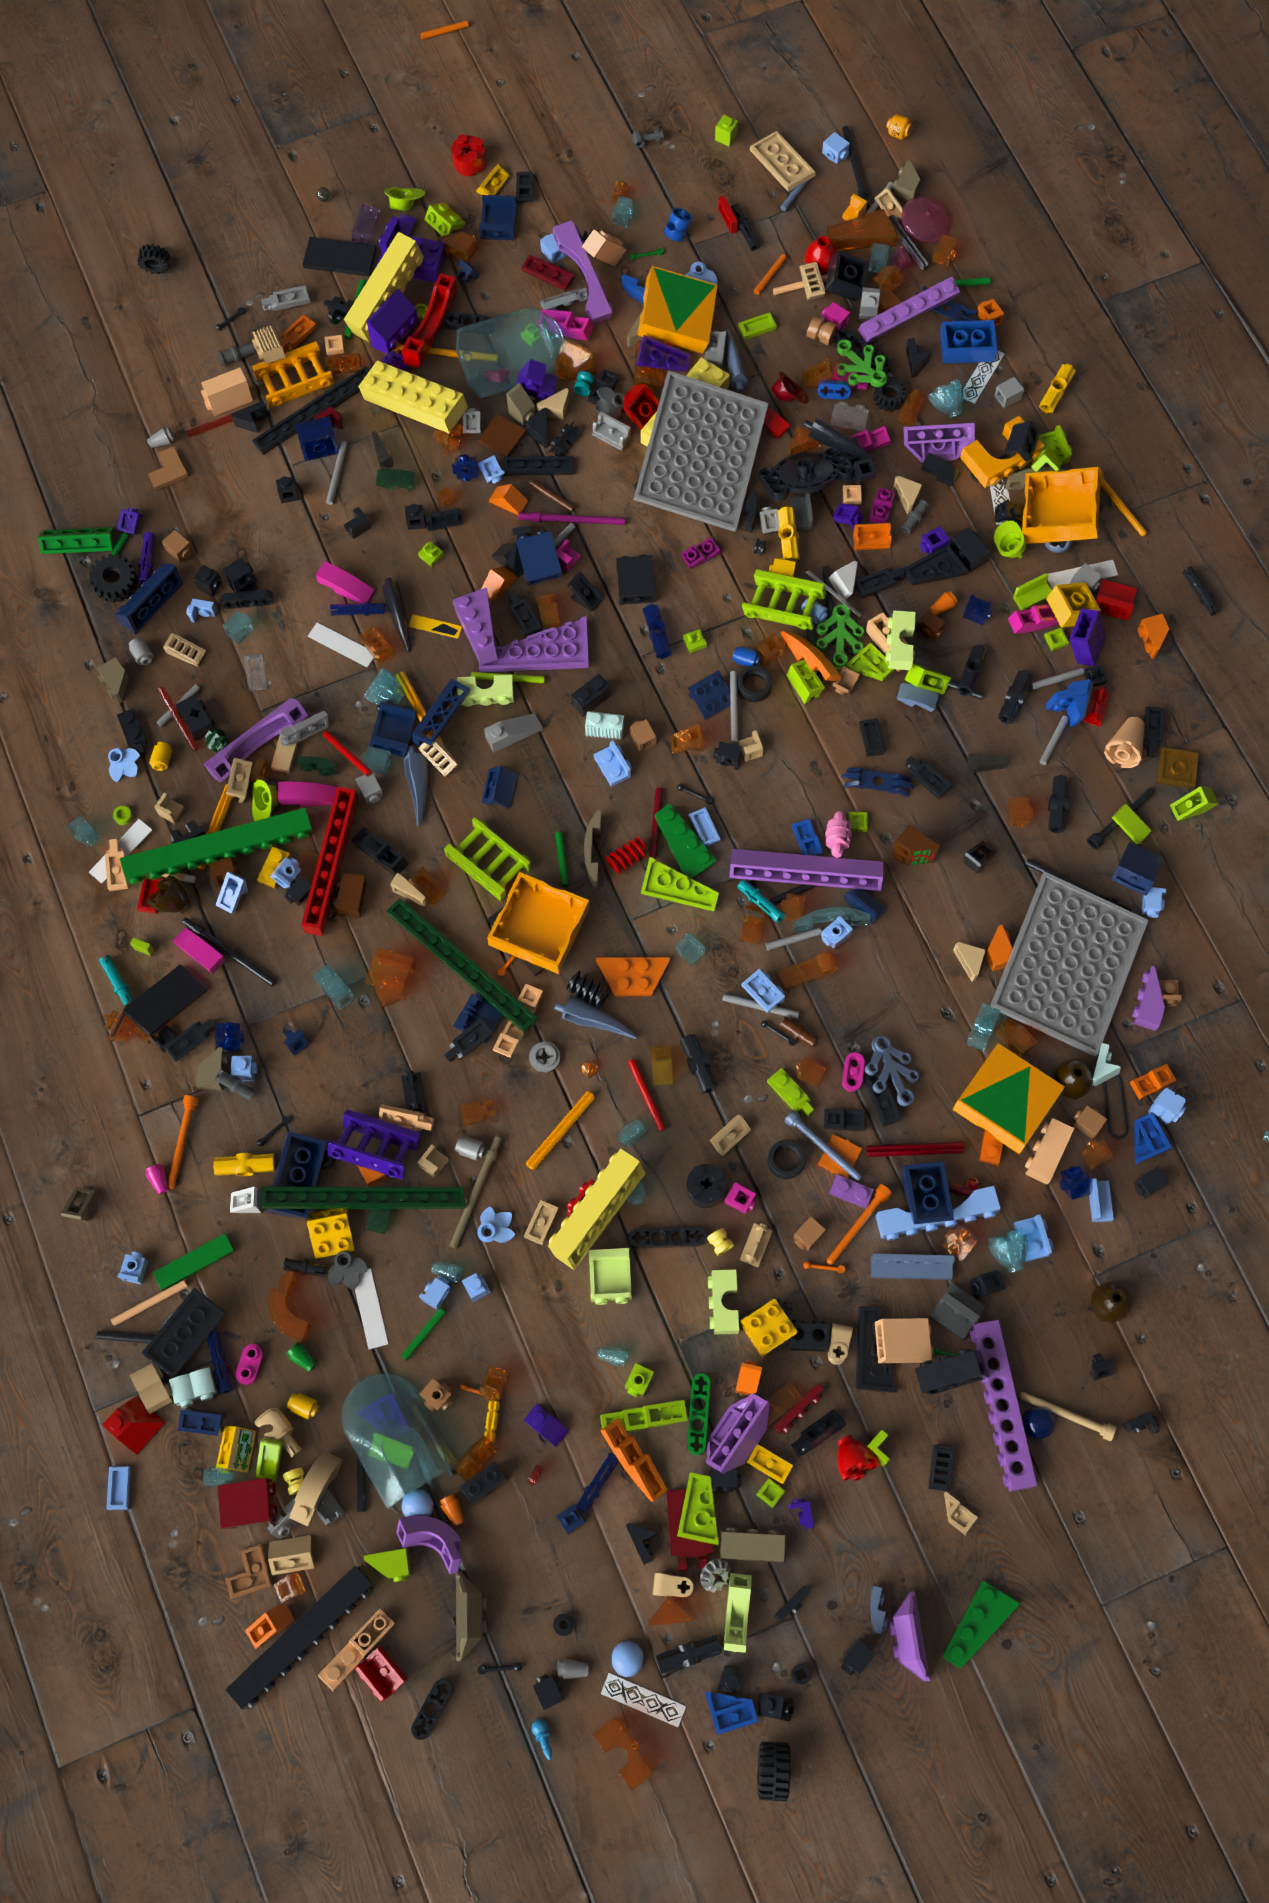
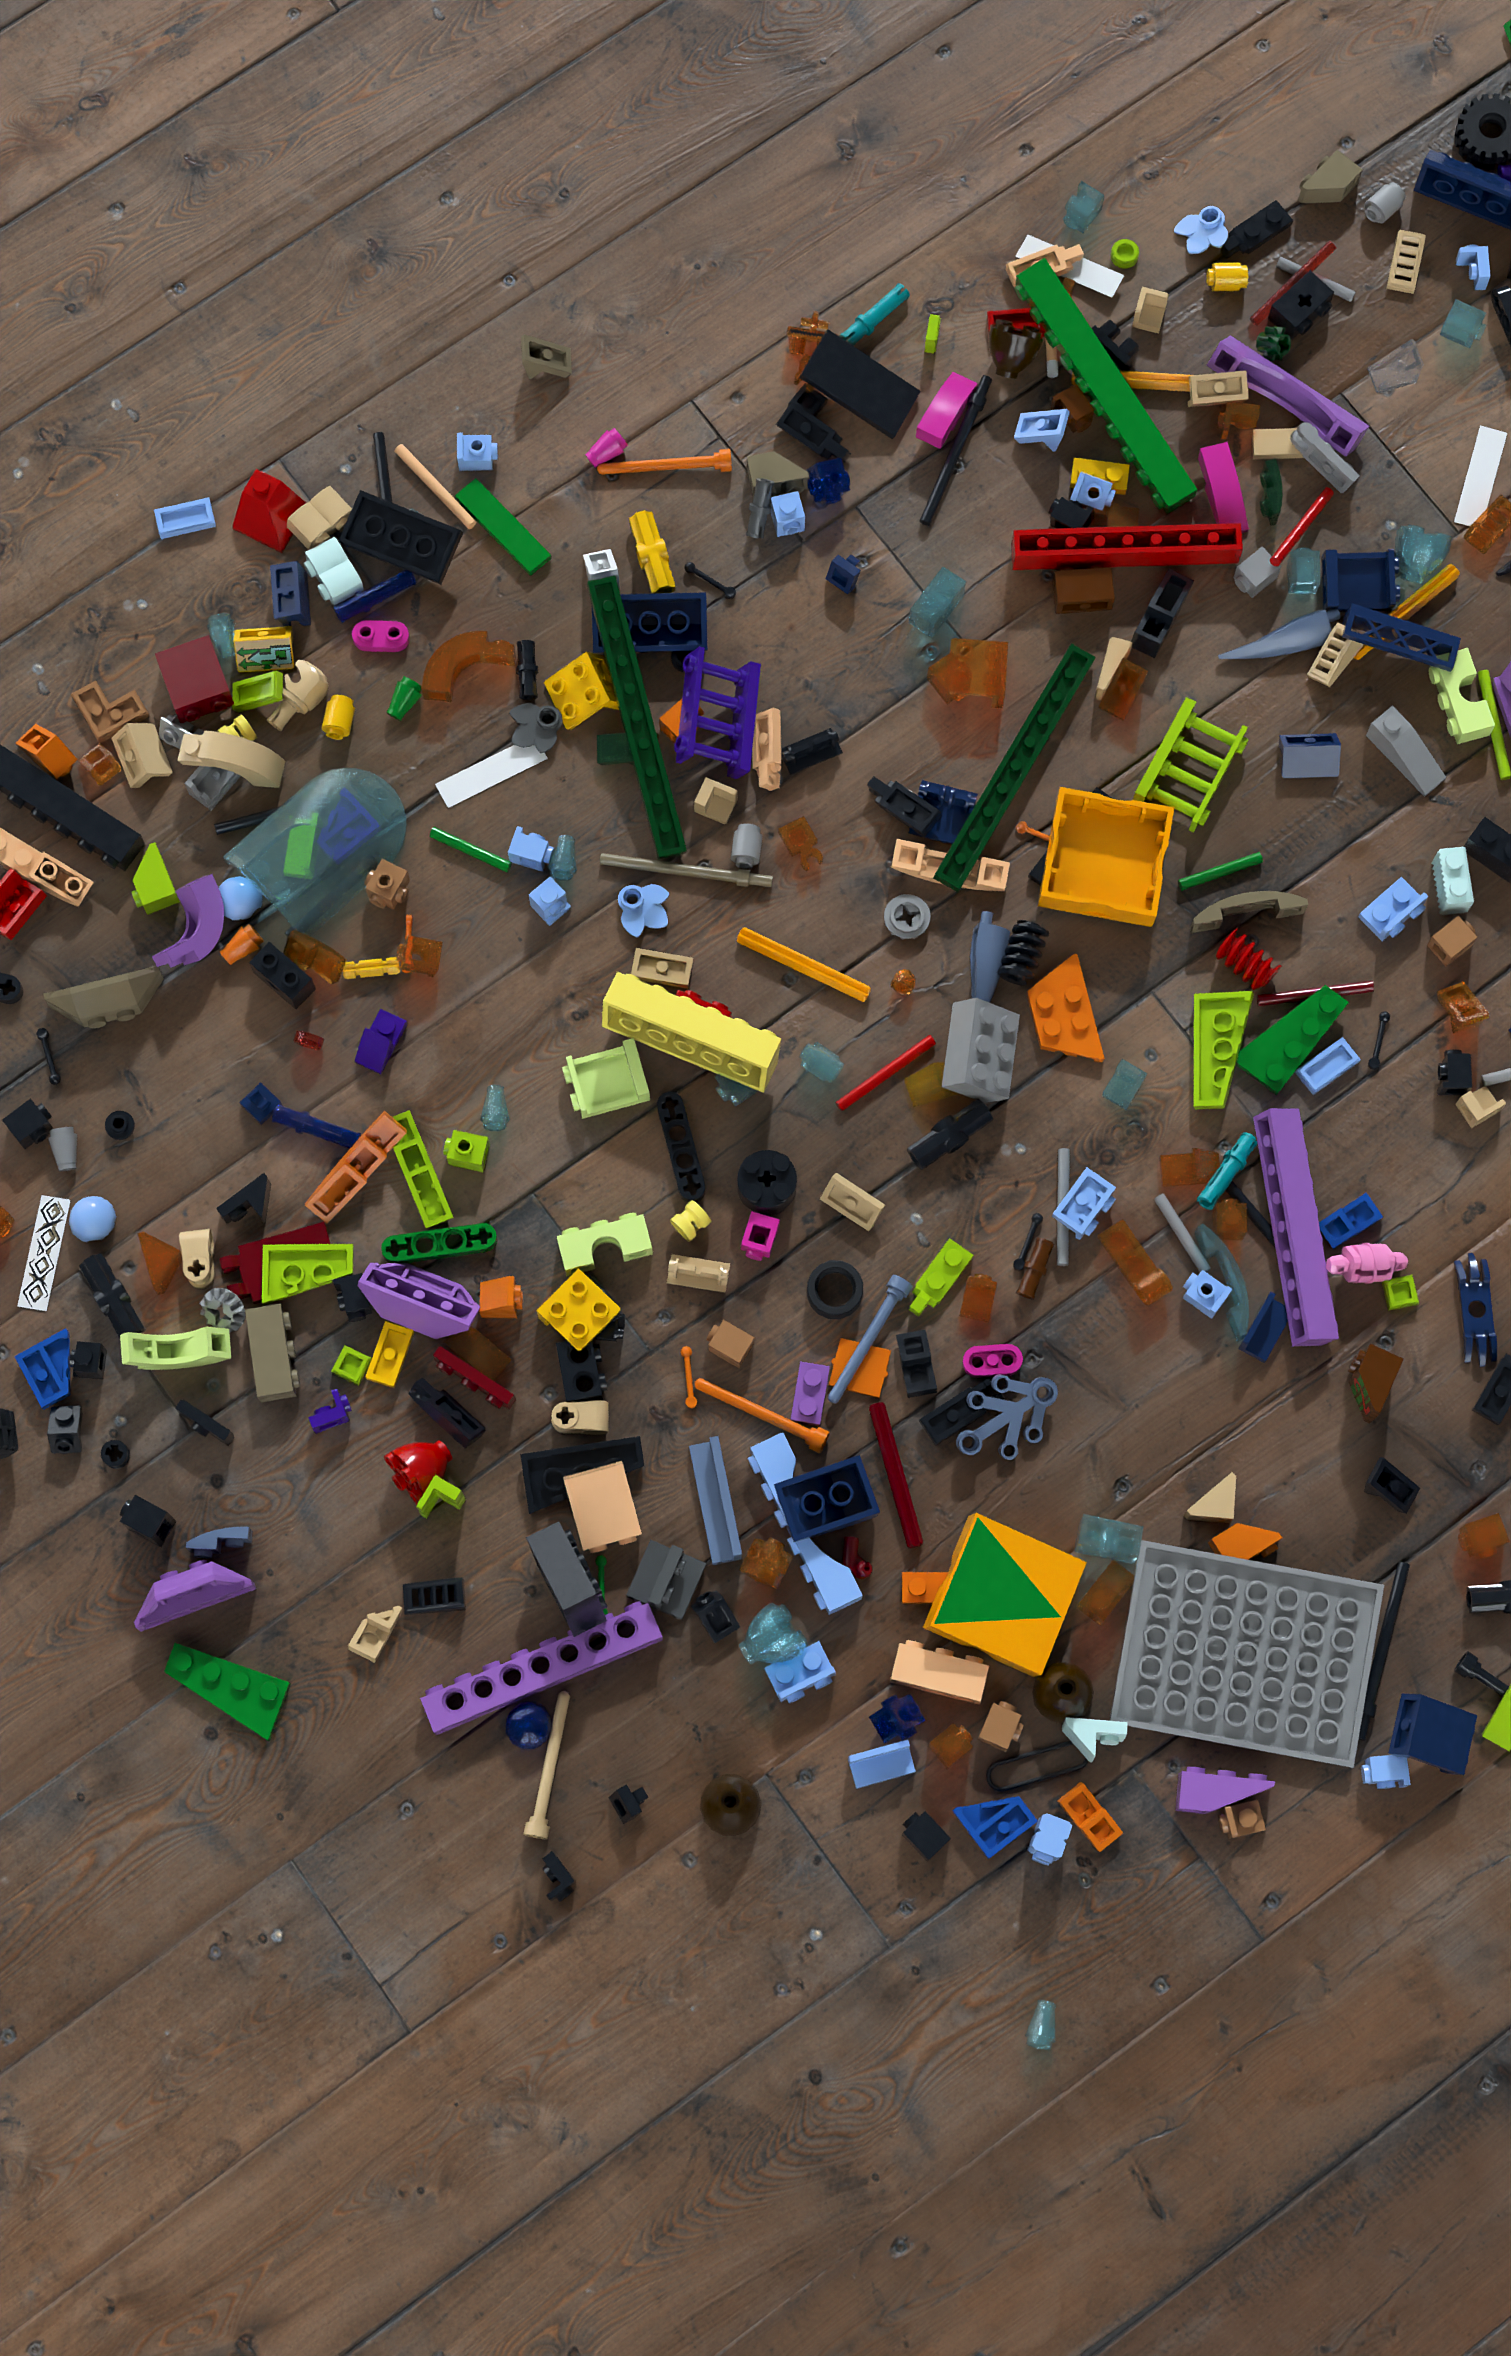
camera: 75 degrees right, 5 degrees up
(264, 799) = (1196, 433): lime piece -> none
(650, 1029) = (980, 1050): none -> light grey brick

